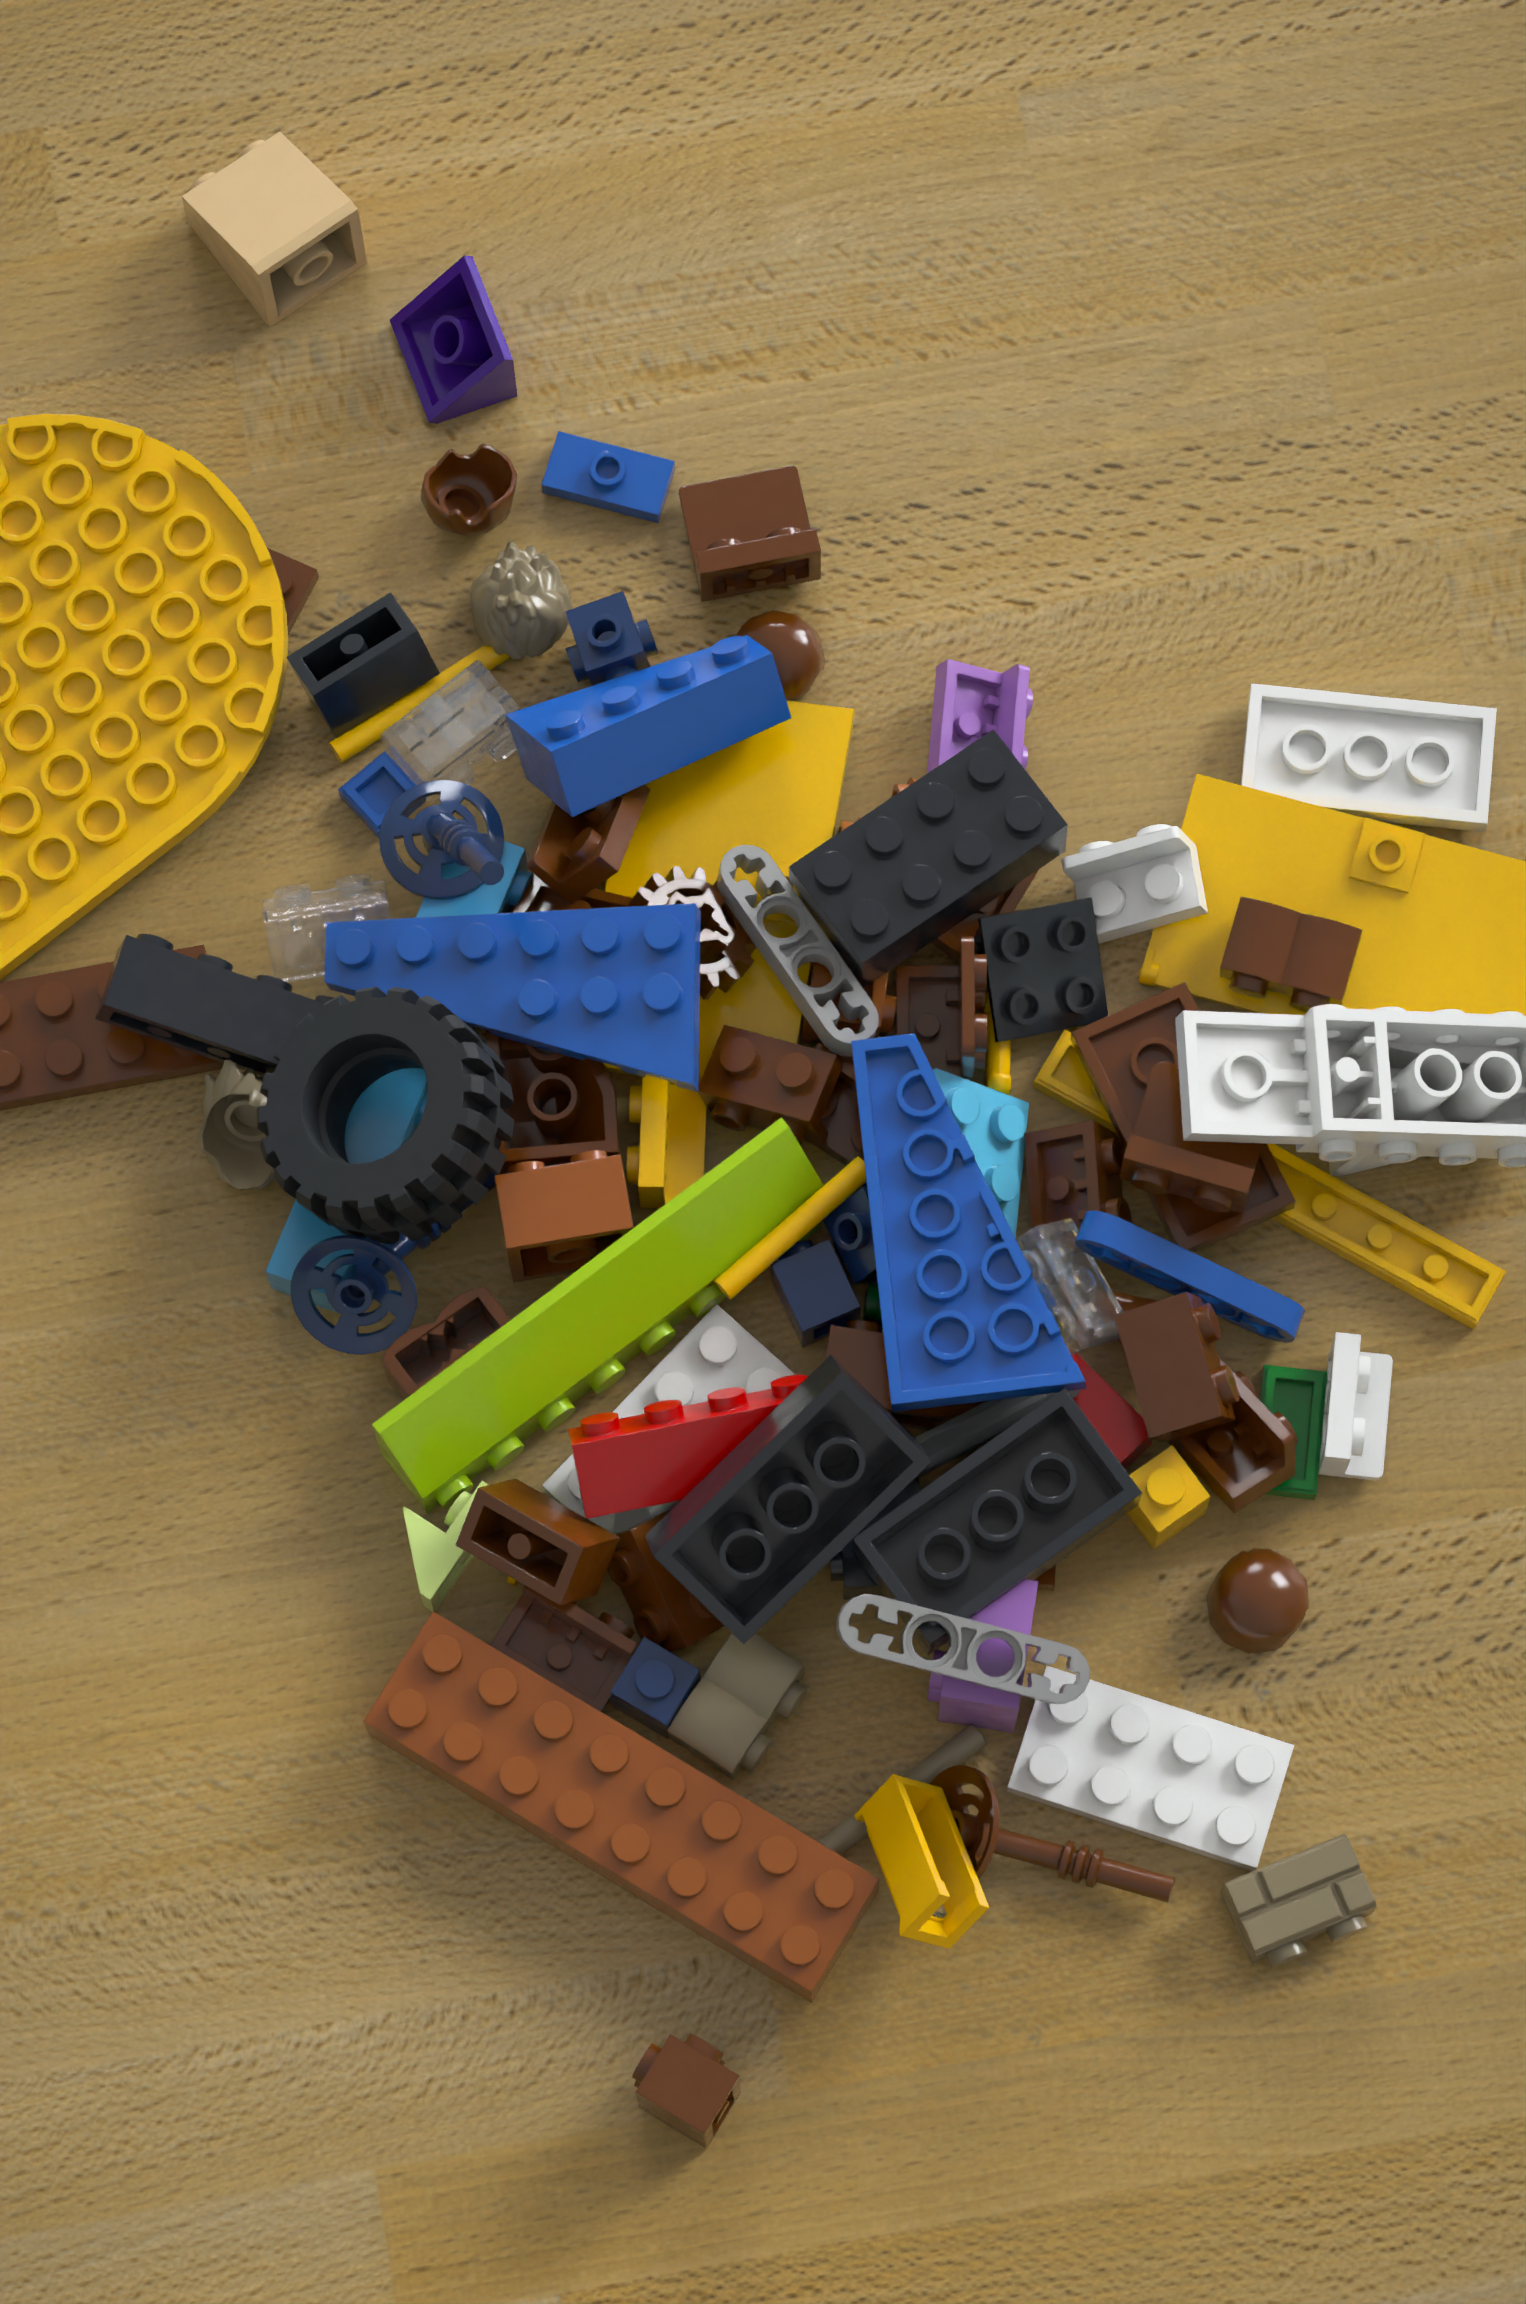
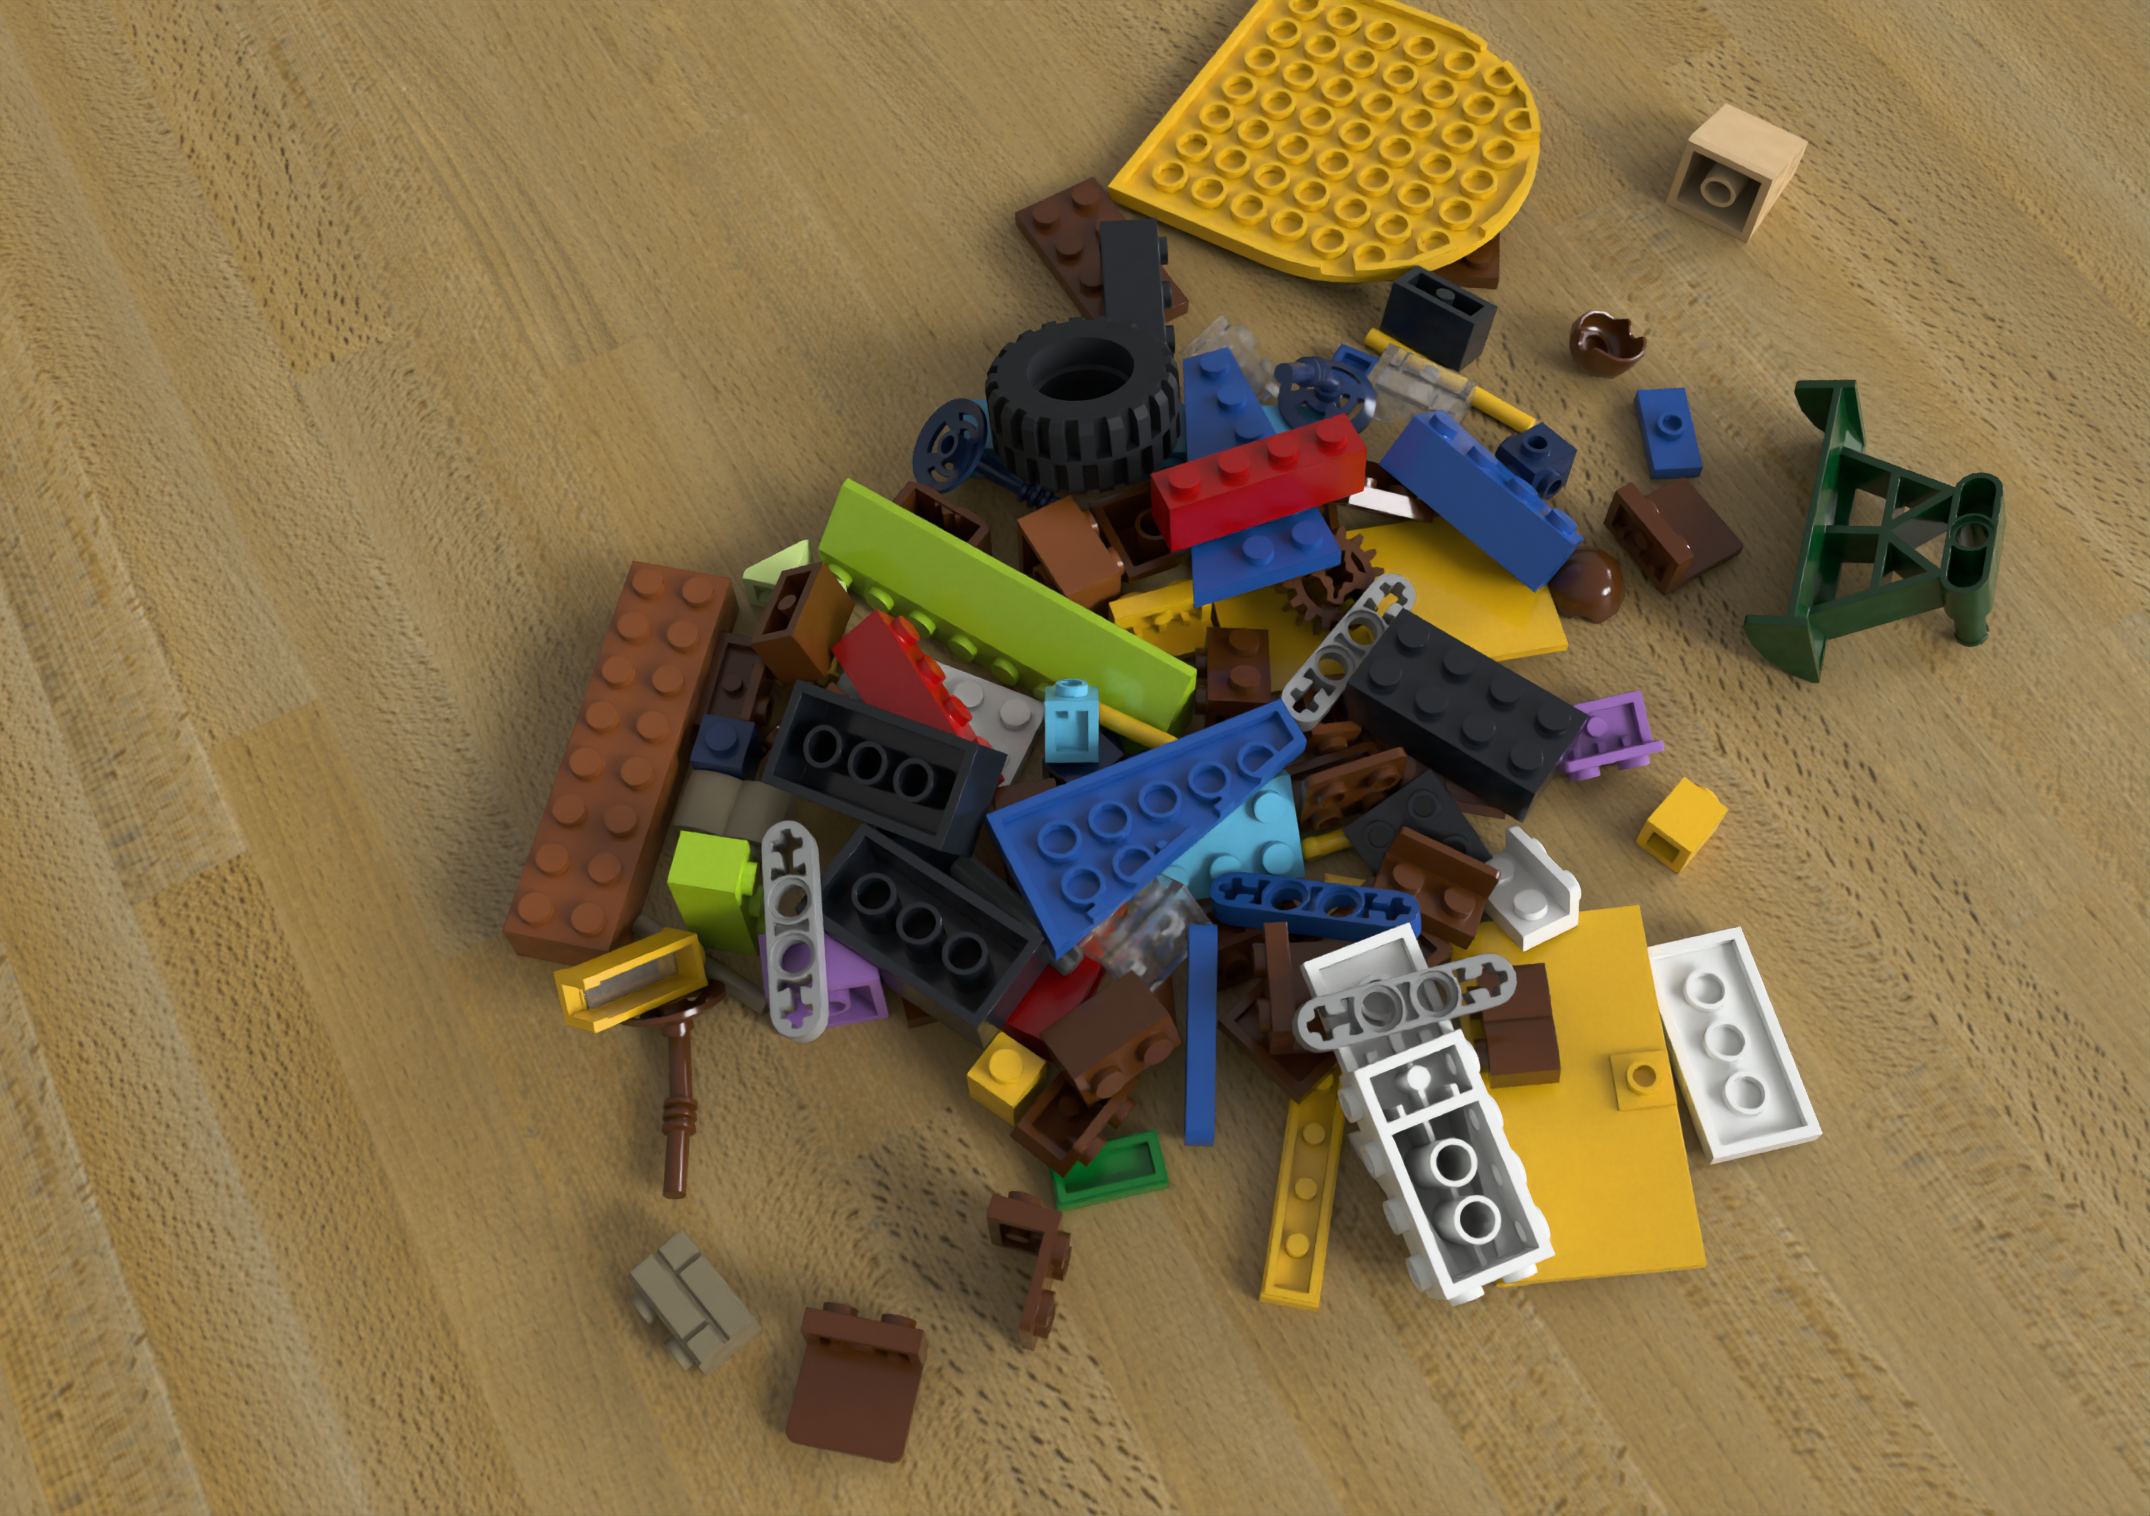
camera: 70 degrees right, 10 degrees down
(455, 345) = (1716, 306): dark purple slope -> none
(520, 603) = (1539, 396): dark tan hair -> none
(589, 958) = (1258, 482): none -> red brick
(686, 2087) = (404, 870): reddish brown brick -> none
(782, 1278) = (1071, 722): none -> medium azure bracket
(863, 1727) = (719, 891): none -> lime brick
(884, 216) = (1970, 560): none -> dark green piece
(1086, 1099) = (1238, 900): none -> blue beam
(1112, 975) = (1443, 881): none -> reddish brown bracket
(1113, 687) = (1681, 824): none -> yellow brick
(1153, 1770) = (778, 1152): white plate -> none
(1257, 1600) = (950, 1190): reddish brown hair -> none
(1259, 1049) = (1405, 1007): none -> light grey beam
(1355, 1410) = (1140, 1211): white bracket -> none
(1383, 1513) = (1029, 1228): none -> reddish brown bracket
(1438, 1756) = (857, 1383): none -> reddish brown bracket

